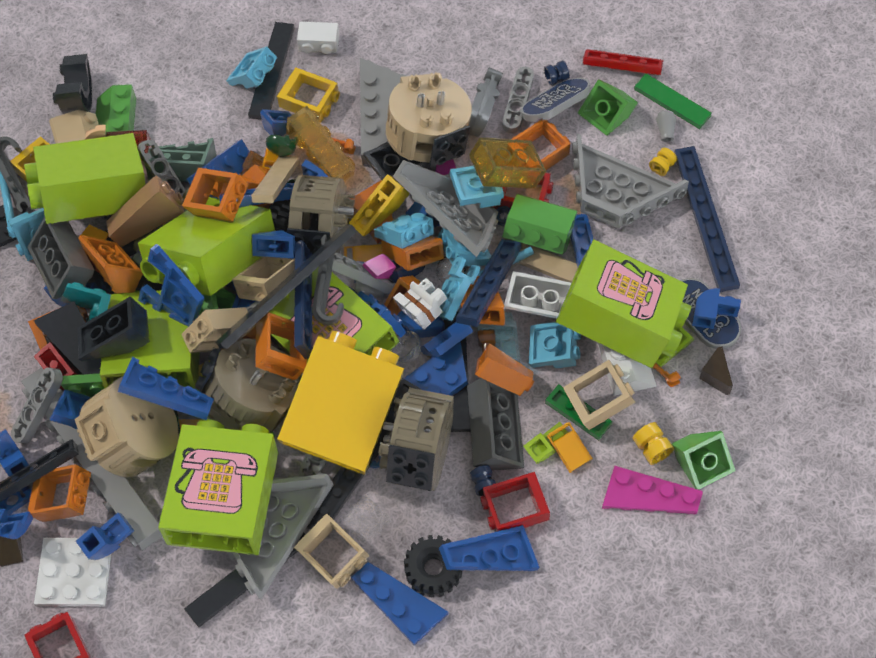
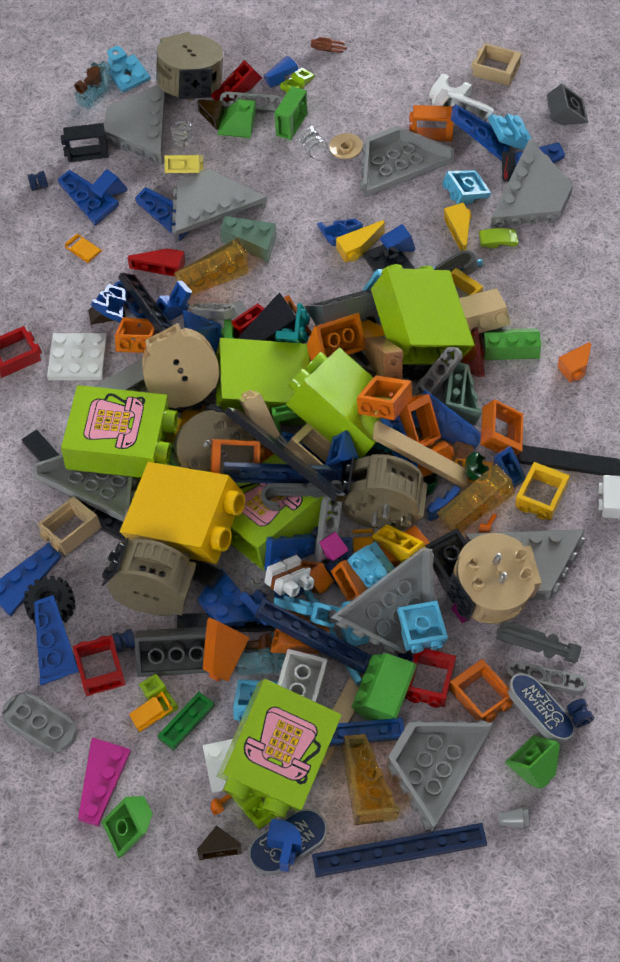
camera: 90 degrees right, 5 degrees down
(77, 86) = (537, 311): black brick -> none
(99, 131) = (473, 320): light nougat tile -> none
(104, 540) = (91, 365): blue brick -> none
(114, 331) = (259, 344): black slope -> none
(151, 61) = (574, 363): none -> orange slope
(155, 388) = (200, 374): blue wing -> none
(177, 294) = (297, 363): blue wing -> none
(233, 122) = (494, 440): none -> orange window
(253, 68) = (569, 442): medium azure plate -> none
(507, 163) = (439, 646): clear yellow brick -> none
(584, 565) = (39, 723): none -> light grey tile
(608, 410) = (186, 714): tan window -> none
(623, 62) = (599, 780): red tile -> none
(650, 240) = (368, 791): none -> clear yellow wedge
(653, 443) = (147, 780): yellow wheel -> none
(665, 159) = (467, 810): yellow wheel -> none
(672, 101) = (550, 829): green tile -> none

